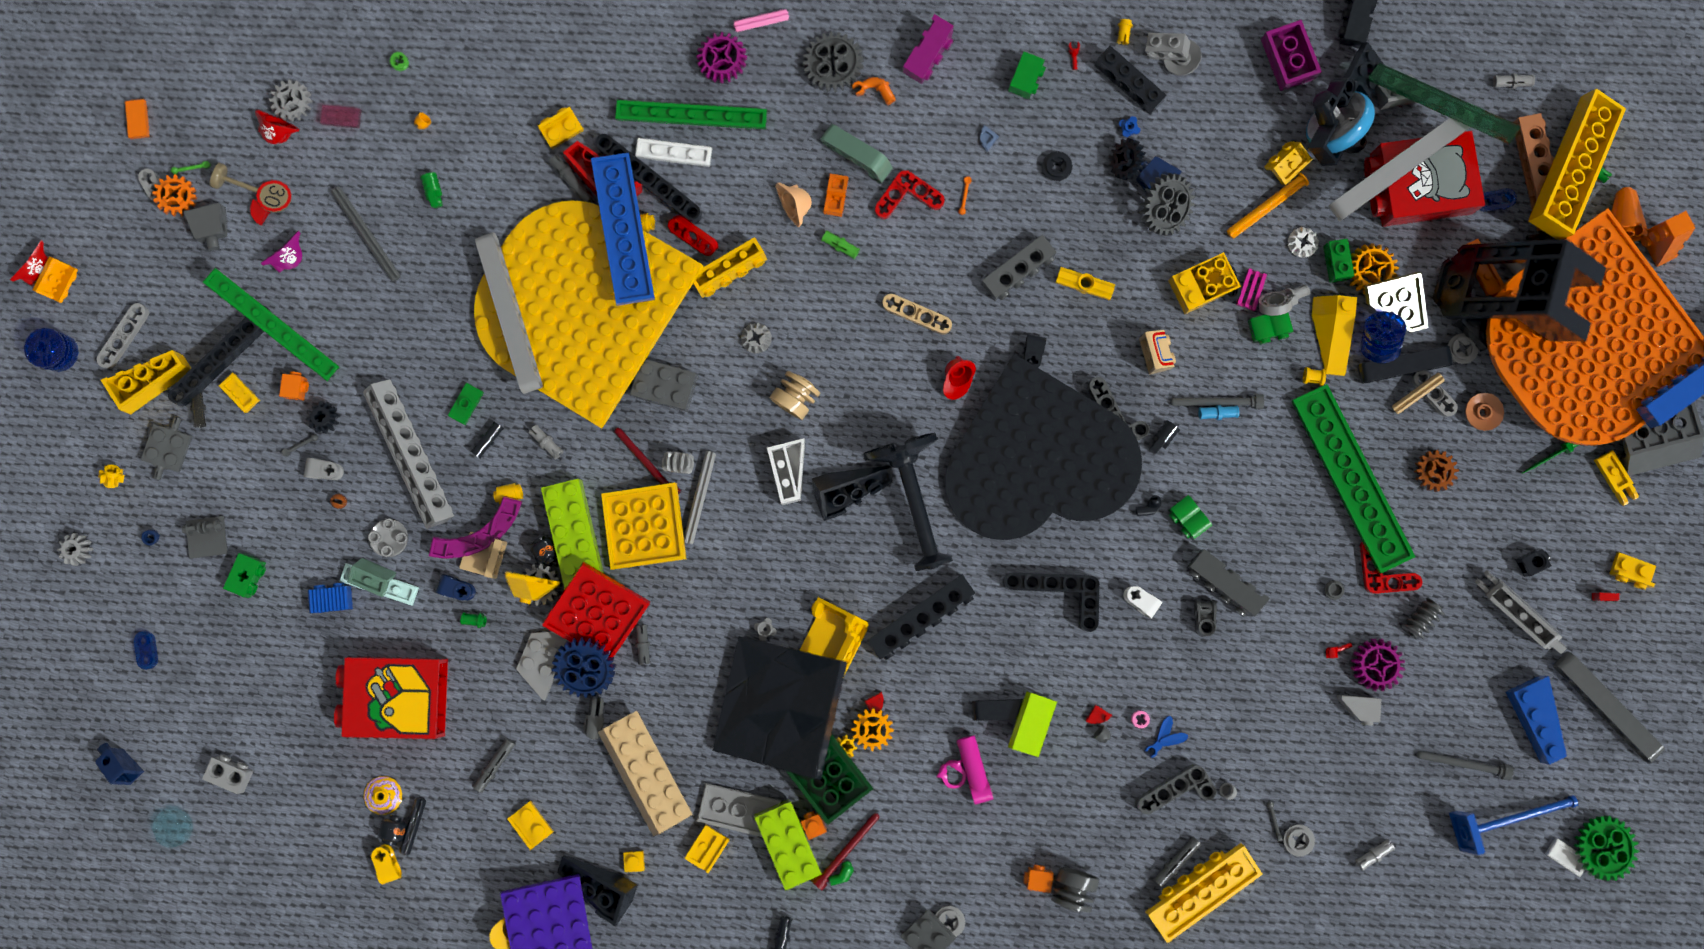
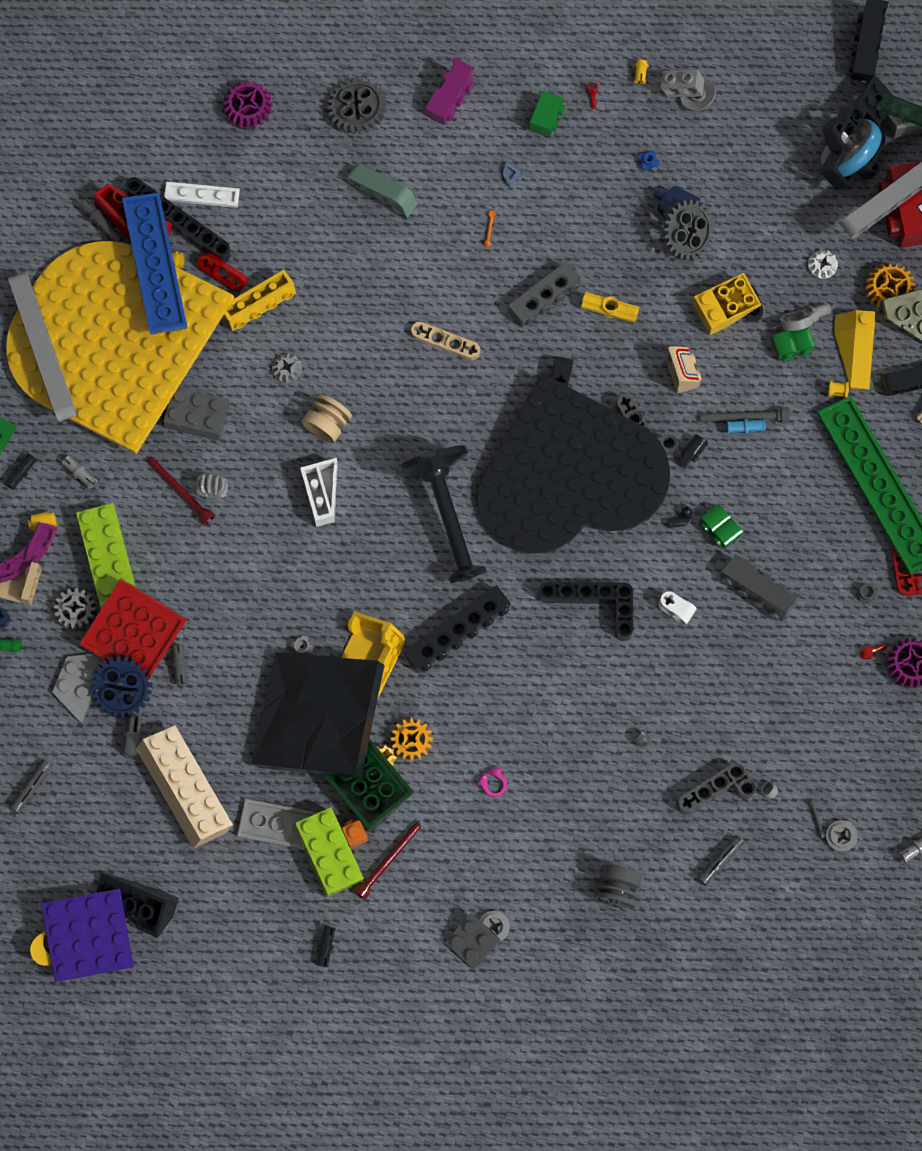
camera: 10 degrees left, 10 degrees down
(529, 587) = (67, 601): yellow wedge -> none
(530, 825) = (68, 845): yellow plate -> none
(543, 550) = (79, 575): black head -> none
(560, 127) = (89, 173): yellow bracket -> none
(634, 861) = (173, 877): yellow plate -> none
(643, 526) = (178, 549): yellow plate -> none
(691, 114) = (218, 158): green plate -> none
(699, 497) = (233, 521): light grey axle -> none
(706, 848) = (247, 861): yellow plate -> none
(761, 20) = (285, 69): bright pink axle -> none
(794, 201) = (322, 237): light nougat hat -> none
(836, 195) = (362, 231): orange slope -> none
(840, 244) = (368, 277): bright green pin -> none
(843, 488) = (377, 508): black wedge -> none
(844, 875) = (387, 883): green arm -> none
(875, 702) = (415, 713): red tile -> none
(880, 85) = (401, 125): orange piece -> none
(903, 189) = (429, 223): red beam -> none
(958, 377) = (488, 399): red piece -> none
(974, 769) = (513, 771): dark pink piece -> none
(996, 709) = (538, 717): black beam -> none
(1032, 724) = (571, 728): lime tile -> none
(1038, 879) = (582, 880): orange brick -> none
(1057, 157) = (579, 190): black gear -> none
(1098, 715) = (637, 721): red tile -> none
(1127, 159) = (646, 188): black gear -> none
(1130, 80) = (647, 116): black brick -> none
(1146, 717) = (673, 723): bright pink bush -> none
(1164, 738) = (704, 741): blue piece -> none
(1202, 891) = (747, 887): yellow plate -> none
(1205, 616) = (739, 619): dark grey piece -> none
(1256, 274) = (778, 295): dark pink tile -> none
(1268, 205) = (786, 230): light orange axle -> none
(1288, 162) = (805, 188): yellow bracket -> none
(1291, 55) = (802, 89): magenta brick -> none
(1338, 260) = (857, 279): green brick -> none
(1362, 708) = (898, 704): light grey slope -> none
(1383, 337) = (901, 348): clear blue wheel -> none

